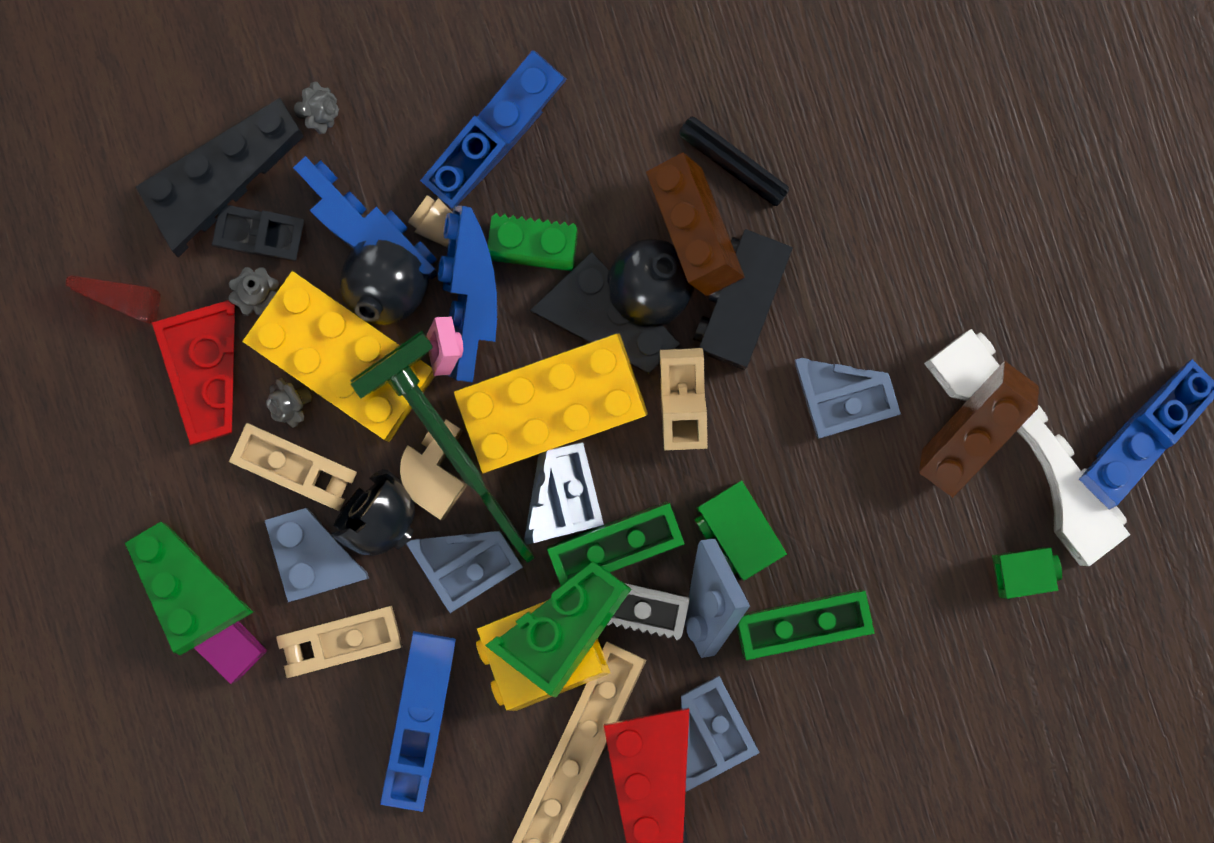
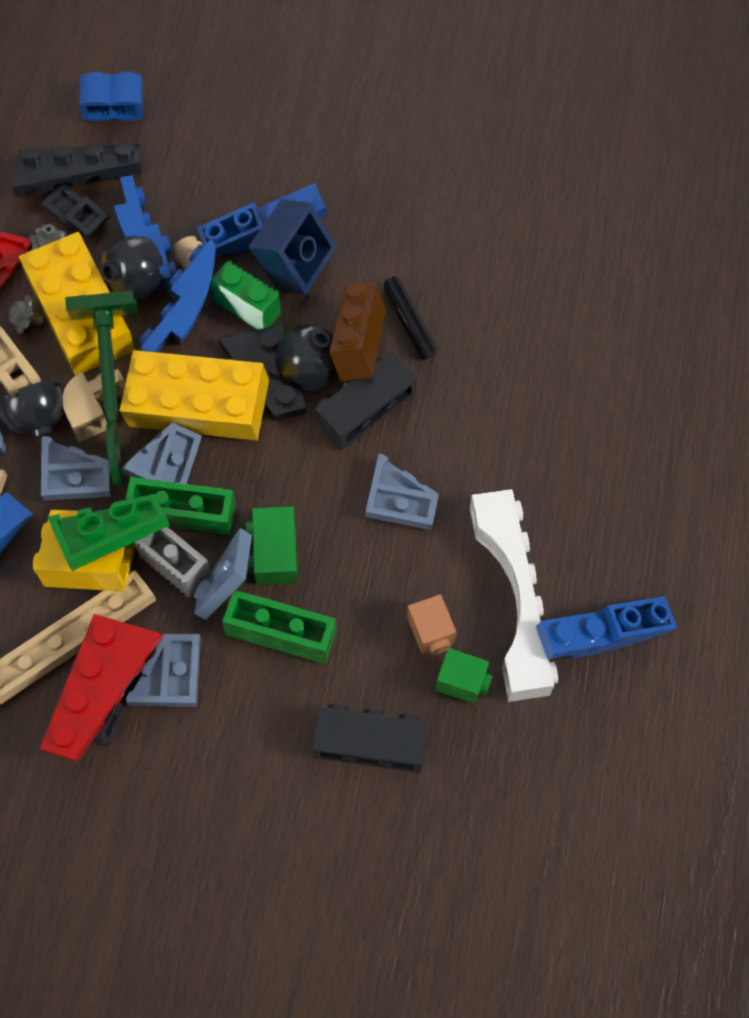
camera: 25 degrees right, 20 degrees down
(203, 50) = (111, 96): none -> blue brick
(318, 108) = (160, 159): dark grey plant -> none
(446, 346) = (145, 319): bright pink plate -> none
(556, 153) = (293, 246): none -> dark blue brick
(683, 399) = (287, 439): tan brick -> none
(963, 533) = (431, 625): none -> nougat brick
(963, 690) = (370, 738): none -> black brick
(979, 429) = (479, 552): reddish brown brick -> none

